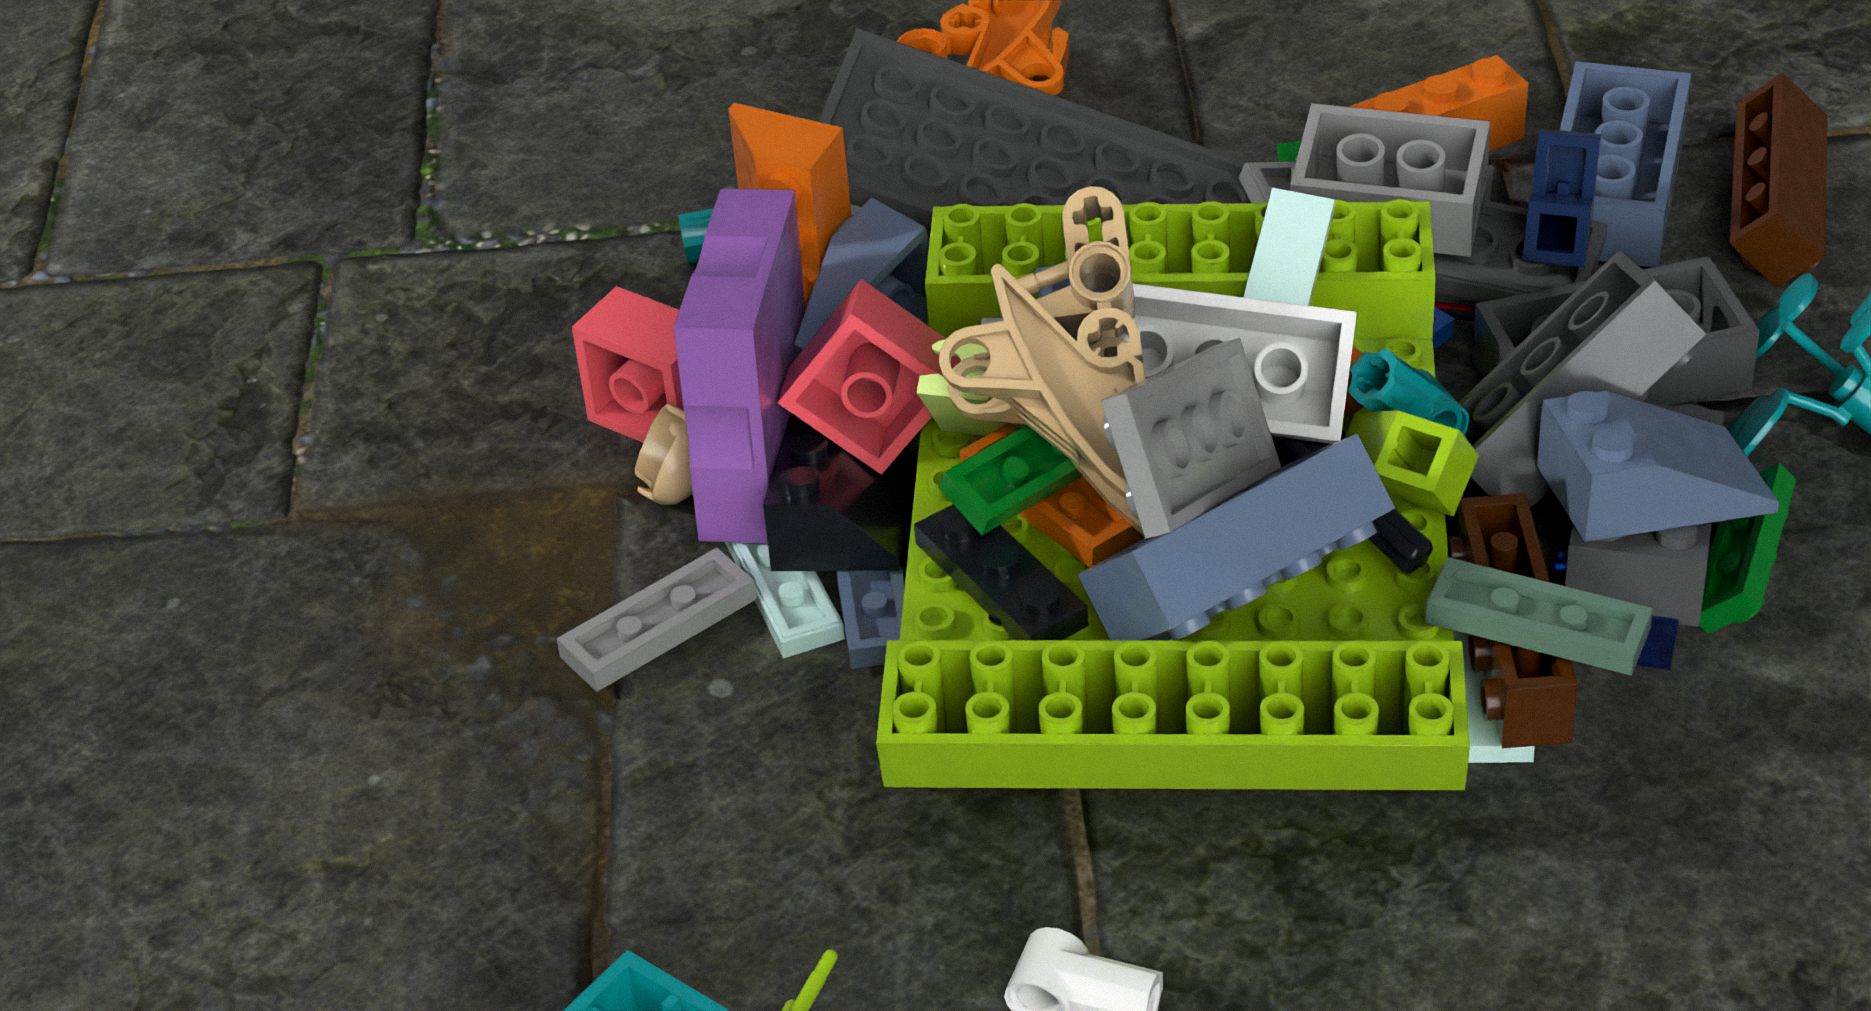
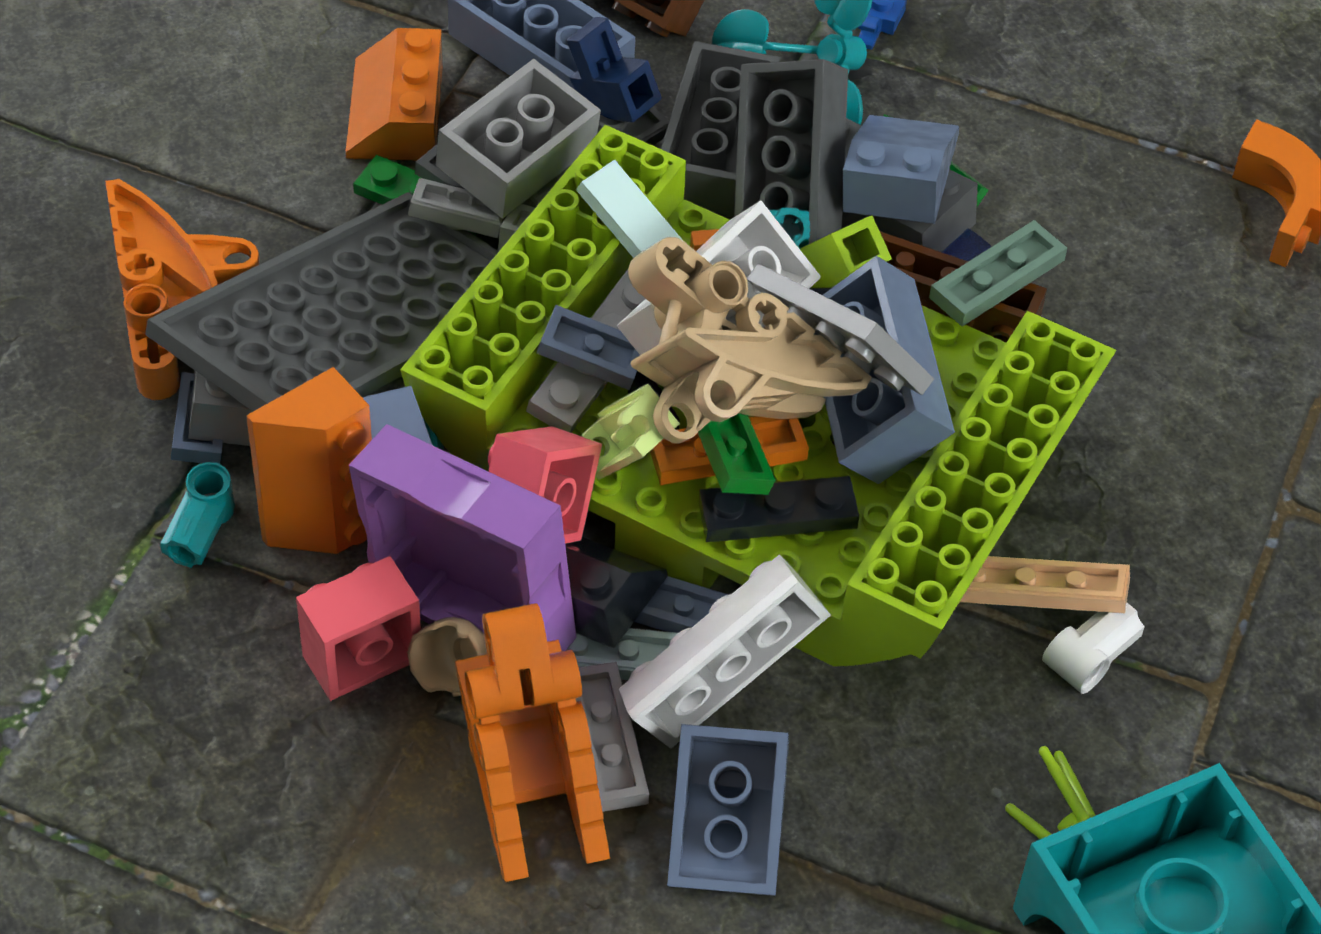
camera: 70 degrees left, 10 degrees up
(577, 536) = (529, 733): none -> orange piece
(620, 744) = (728, 809): none -> sand blue slope
(778, 621) = (723, 651): none -> white slope
(1128, 883) = (1050, 584): none -> light nougat tile

